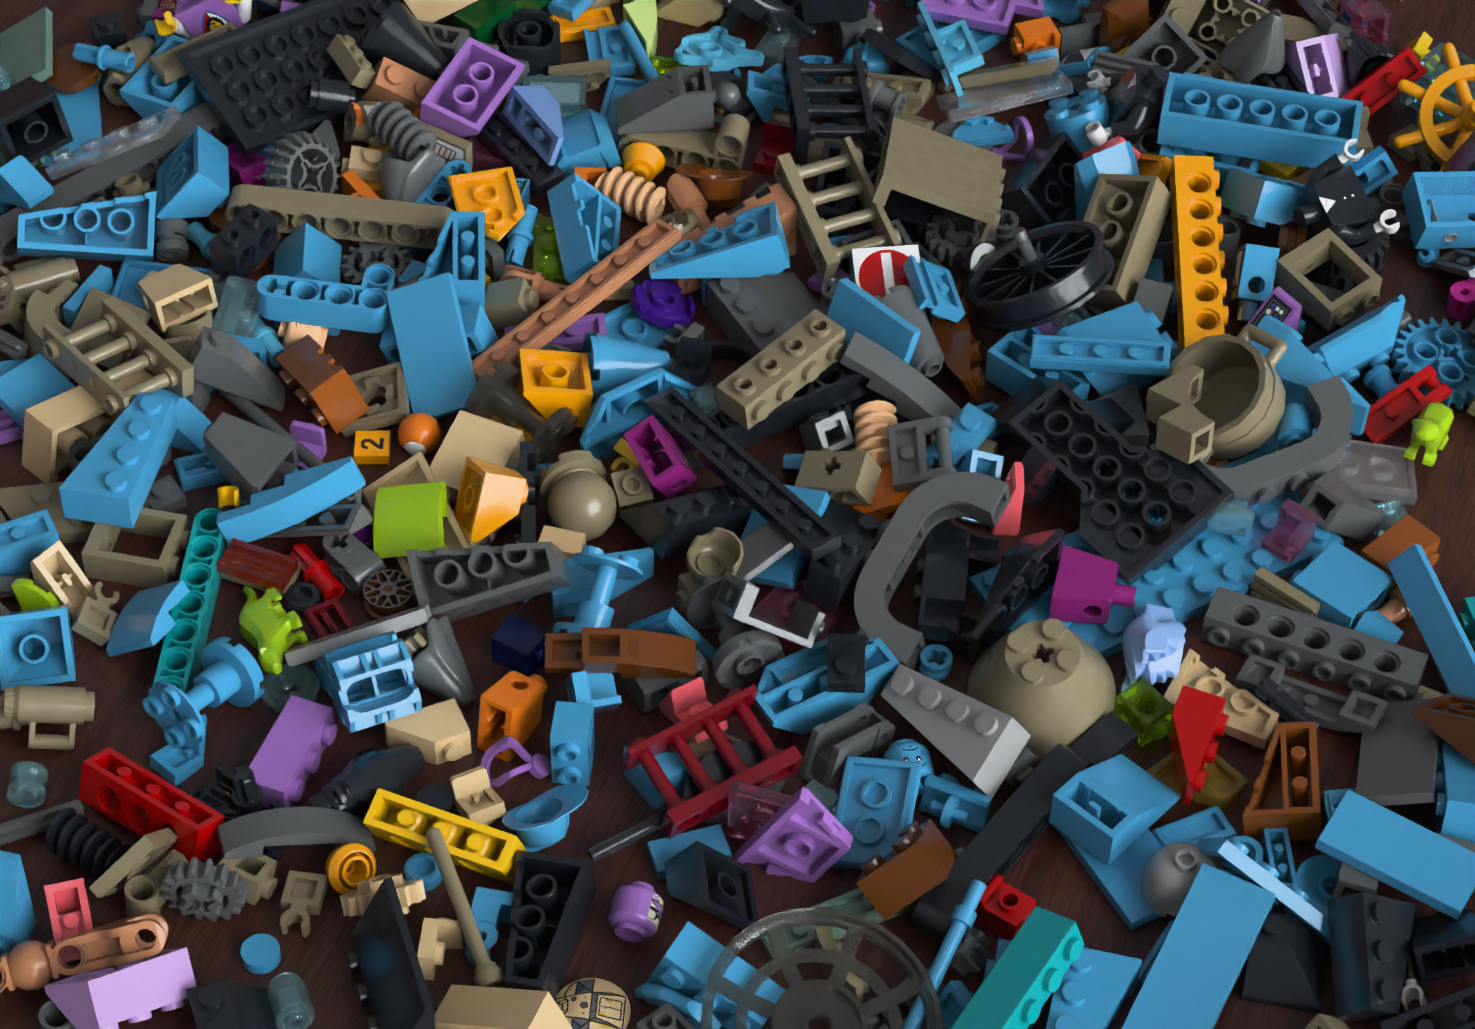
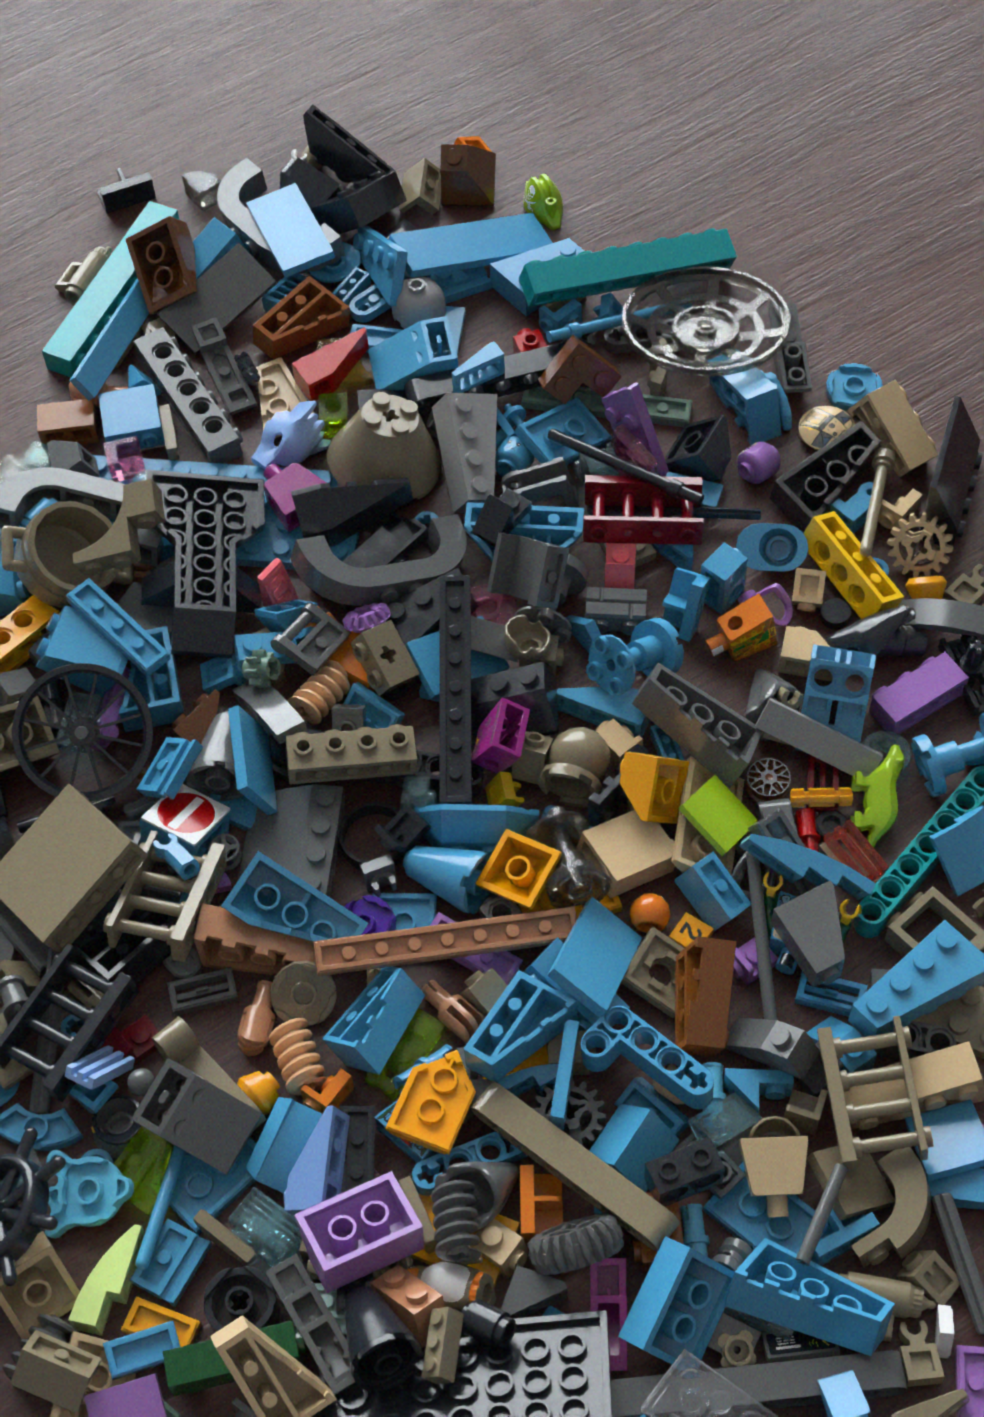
camera: 140 degrees left, 10 degrees up
(111, 265) = (821, 1214): none -> dark grey piece
(326, 600) = (821, 797): none -> light orange axle
(375, 462) = (712, 891): none -> dark azure panel
(389, 252) = (564, 1074): none -> dark azure tile
(519, 645) = (702, 677): clear blue brick -> none
(621, 651) = (648, 591): reddish brown slope -> none
(689, 780) = (672, 487): none -> black bar
(717, 185) = (217, 1026): dark orange piece -> none
(782, 90) = (99, 1067): none -> light blue tile
(855, 228) = (177, 857): none -> dark azure bar
(877, 503) = (366, 617): none -> medium lavender gear
(939, 401) = (261, 668): none -> sand green gear
(1014, 803) = (479, 368): none -> dark azure slope

